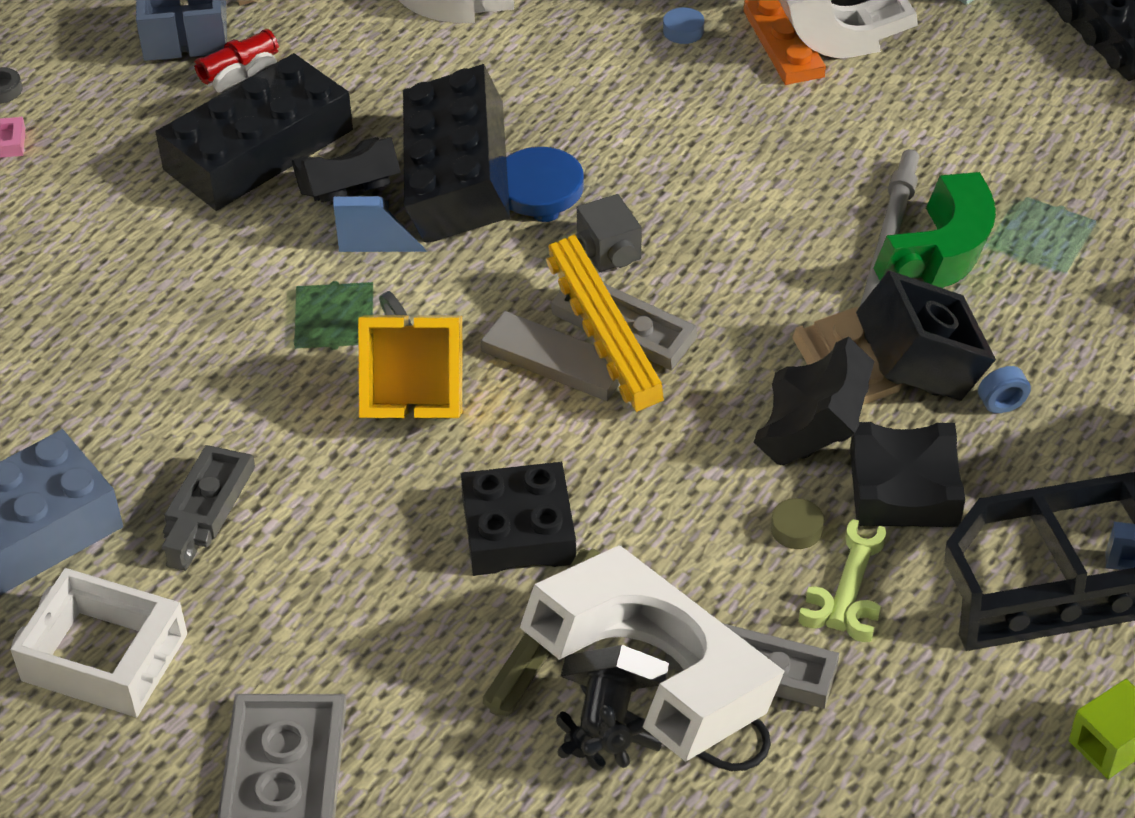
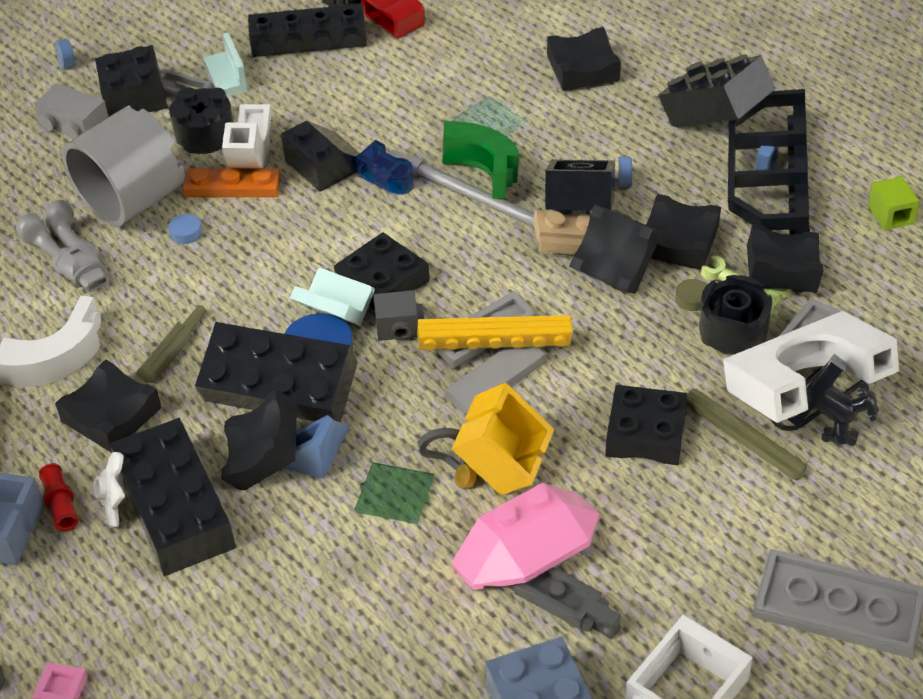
camera: 70 degrees left, 0 degrees up
(293, 444) = (526, 537): none -> bright pink wedge
(369, 48) = (108, 406): none -> black brick
(500, 70) = (169, 347): none -> olive axle
(605, 170) = (336, 296): none -> light aqua panel
(684, 201) = (385, 267): none -> black brick
(752, 564) = (734, 314): none -> black brick
(871, 92) = (319, 154): none -> black slope
(875, 146) = (385, 170): none -> clear blue leg
(899, 602) = (784, 259): none -> black brick

